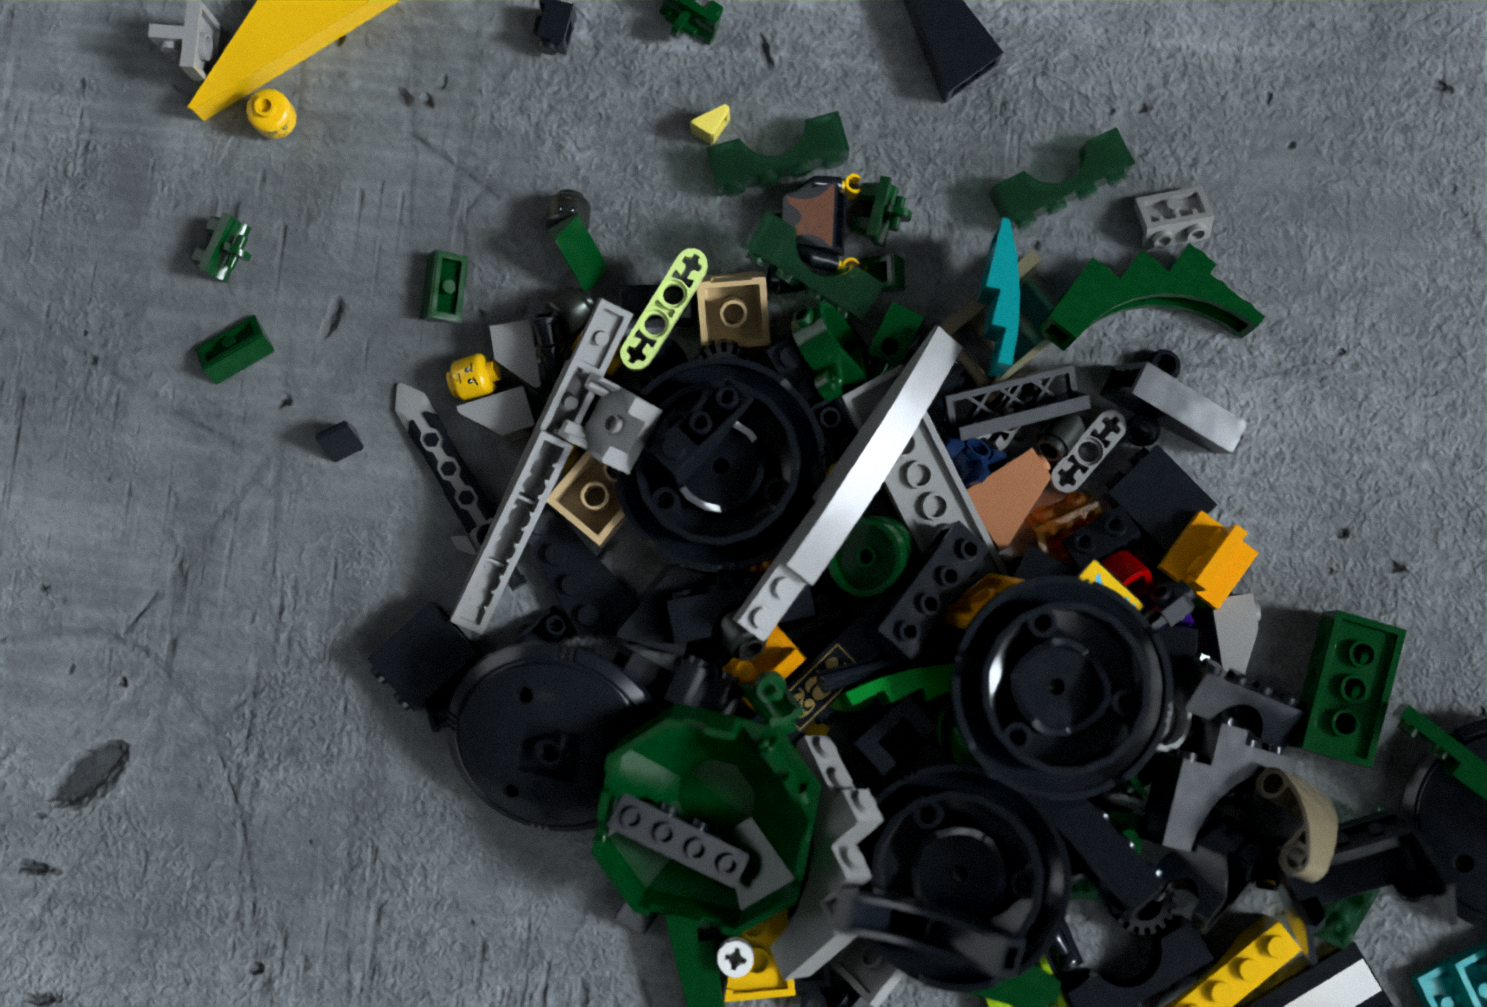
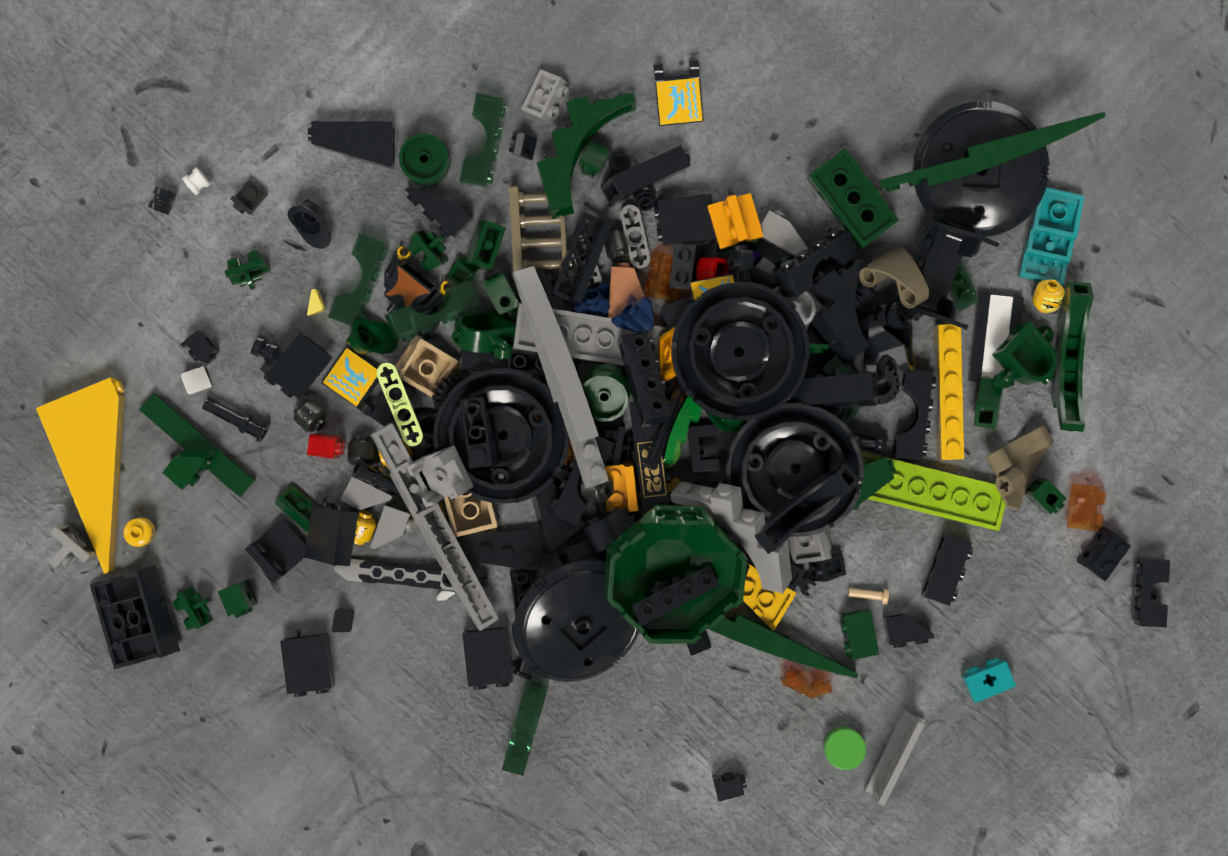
camera: 55 degrees left, 5 degrees up
(161, 185) = (134, 617): none -> black piece
(234, 350) = (252, 641): dark green slope -> none
(252, 437) = (307, 664): none -> black brick
(272, 290) = (238, 599): none -> dark green brick
(366, 771) = (525, 727): none -> clear green arch
(369, 298) = (277, 550): none -> black bracket
(394, 113) = (187, 466): none -> dark green slope
(431, 109) = (191, 439): none -> dark green tile
(438, 346) = (331, 534): none -> black brick
(499, 145) = (244, 423): none -> black pin
(509, 50) = (196, 380): none -> white slope
(543, 259) = (325, 446): none -> red brick
(579, 251) = (334, 424): dark green slope -> none
(610, 104) = (263, 347): none -> black wheel
(618, 150) = (295, 364): none -> black brick
(651, 237) = (354, 379): none -> yellow flag
(720, 218) = (371, 337): none -> dark green piece
(737, 949) = (752, 606): white wheel -> none
(773, 701) = (641, 498): dark green hips -> none
(806, 44) = (309, 222): none -> black piece
(939, 274) = (485, 245): none -> dark green brick
(941, 198) = (444, 211): none -> black slope
(990, 106) = (438, 159): none -> dark green wheel
(997, 522) = (636, 315): none -> dark blue brick
(1002, 292) = (518, 223): teal slope -> none
(1094, 234) = (524, 146): none -> black tile
(1144, 330) = (594, 160): none -> dark green slope
(1299, 378) = (678, 96): none -> flag

